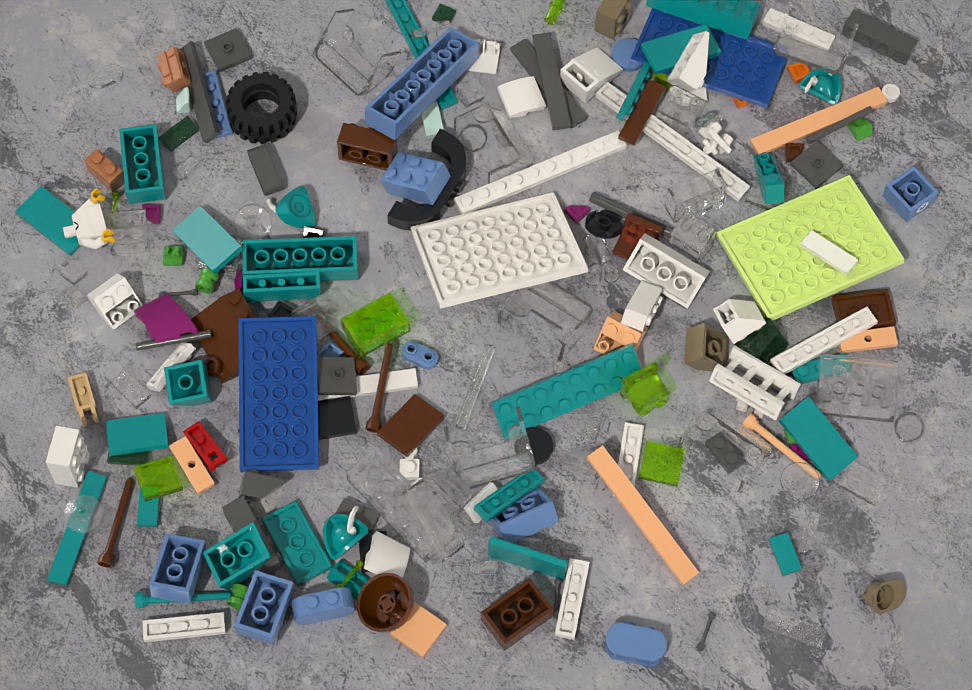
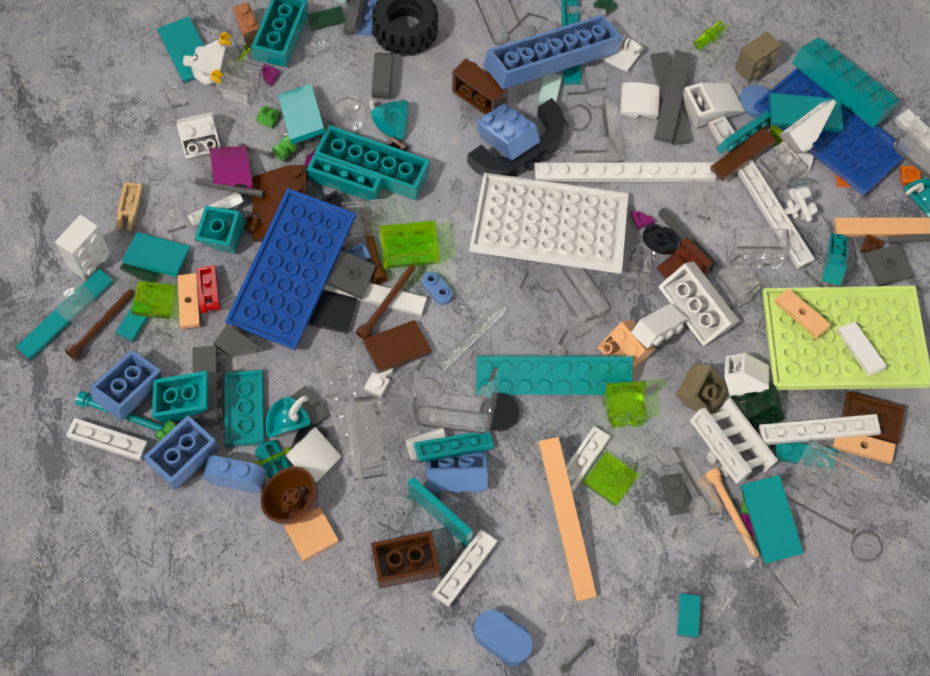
camera: 25 degrees right, 0 degrees up
(763, 241) = (802, 313): none -> light nougat tile

